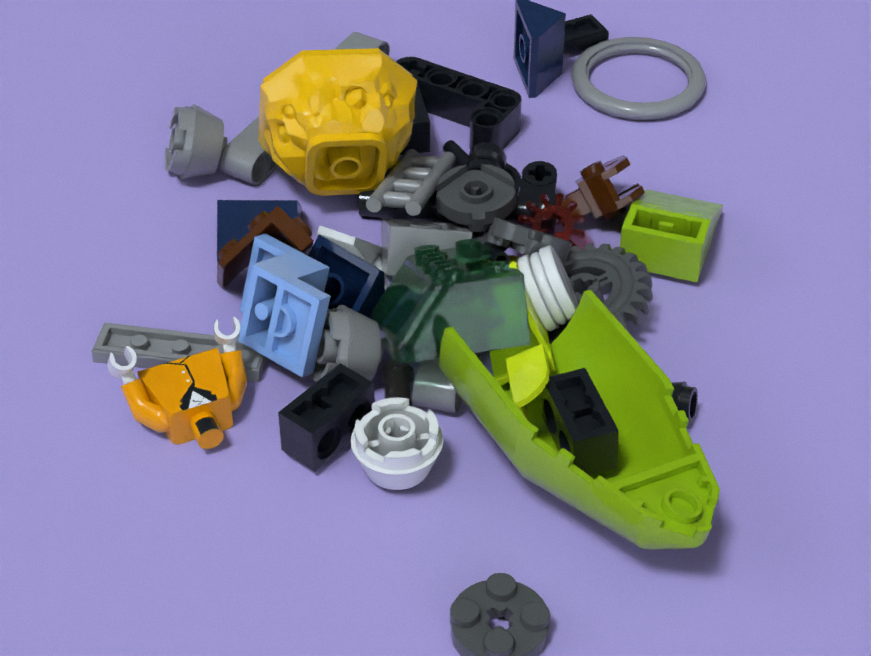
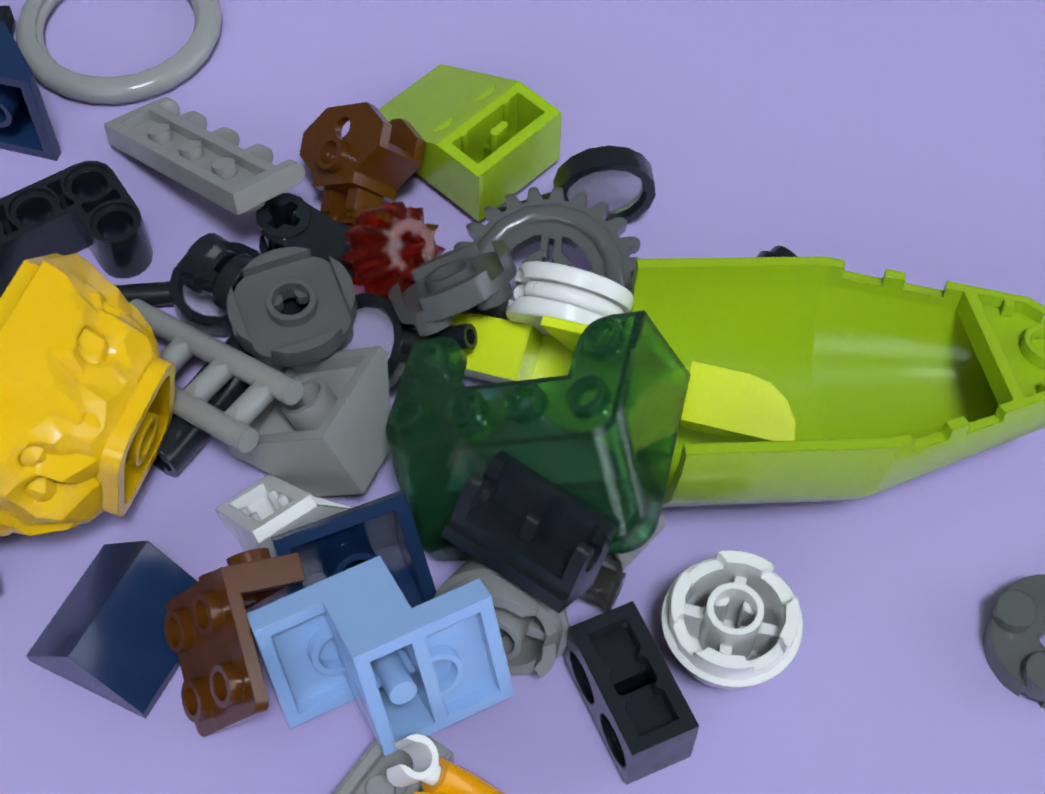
camera: 65 degrees left, 15 degrees up
(374, 313) = (531, 531): none -> black hinge
(557, 130) = (202, 159): none -> light grey hinge
(580, 421) = (829, 387): black brick -> none
(675, 294) = (609, 176): none -> black piece

